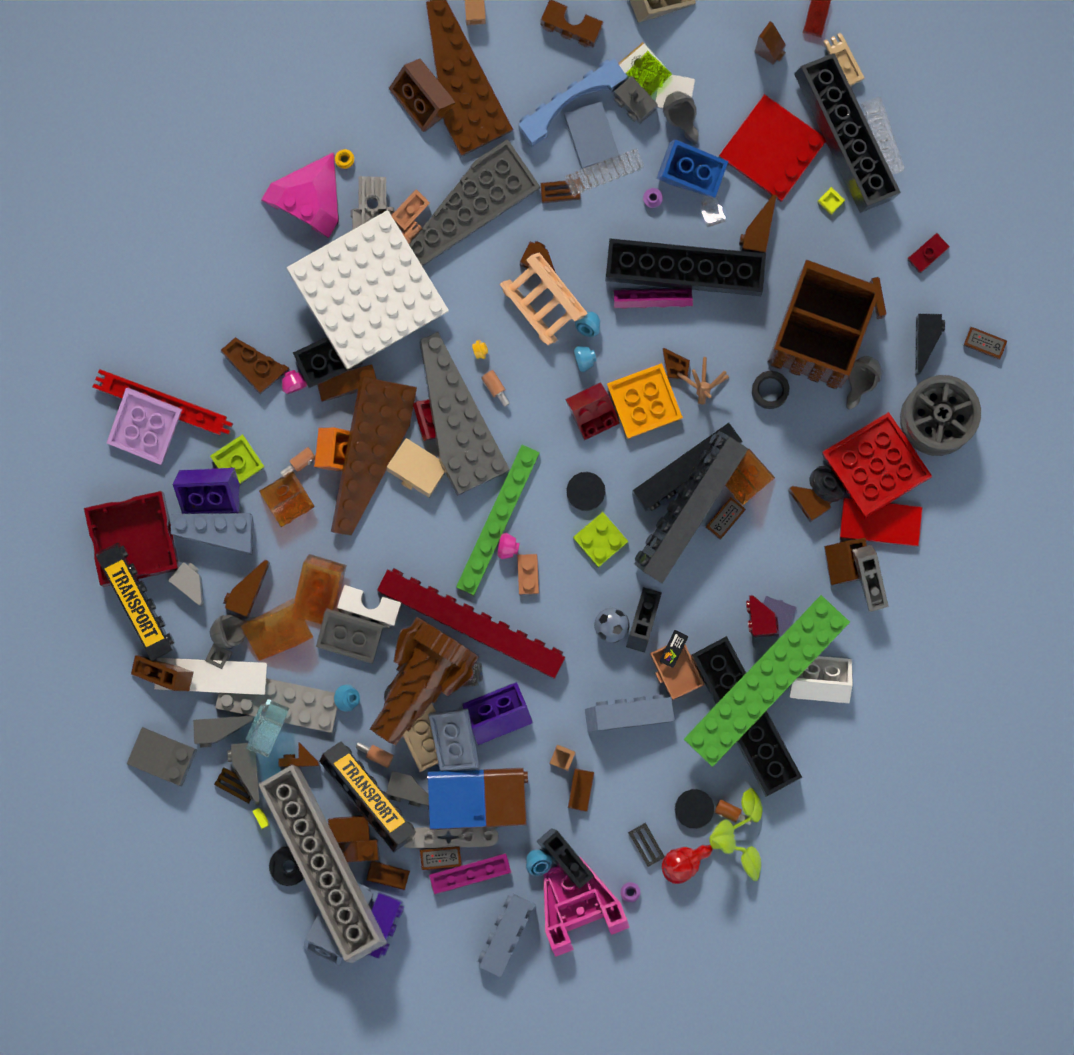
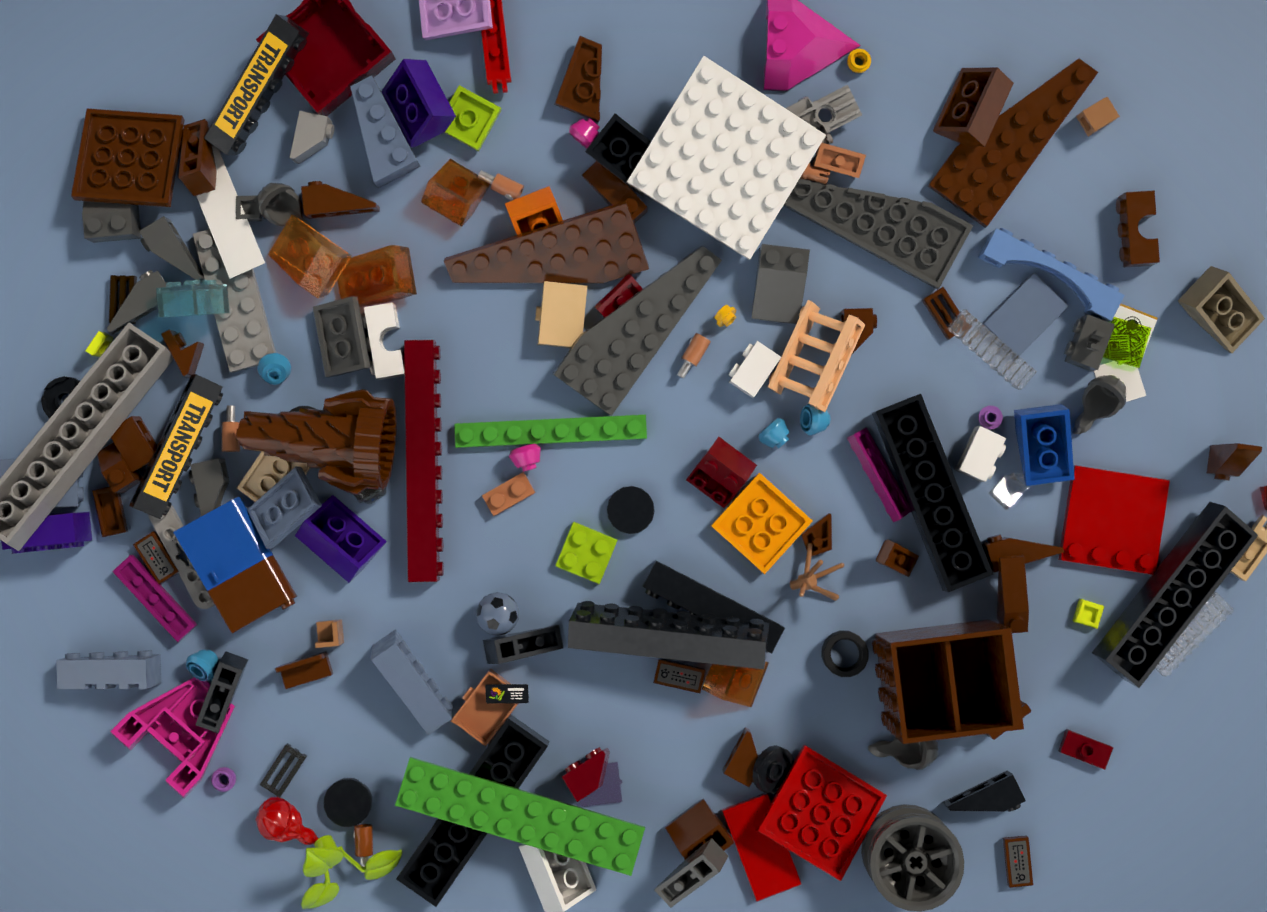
camera: 60 degrees right, 5 degrees up
(135, 724) = (128, 157): none -> reddish brown plate
(477, 298) = (780, 283): none -> dark grey slope
(529, 348) = (754, 369): none -> white brick
(676, 218) = (980, 454): none -> white brick
(720, 316) = (897, 557): none -> reddish brown slope
(786, 246) = (1012, 593): none -> reddish brown slope

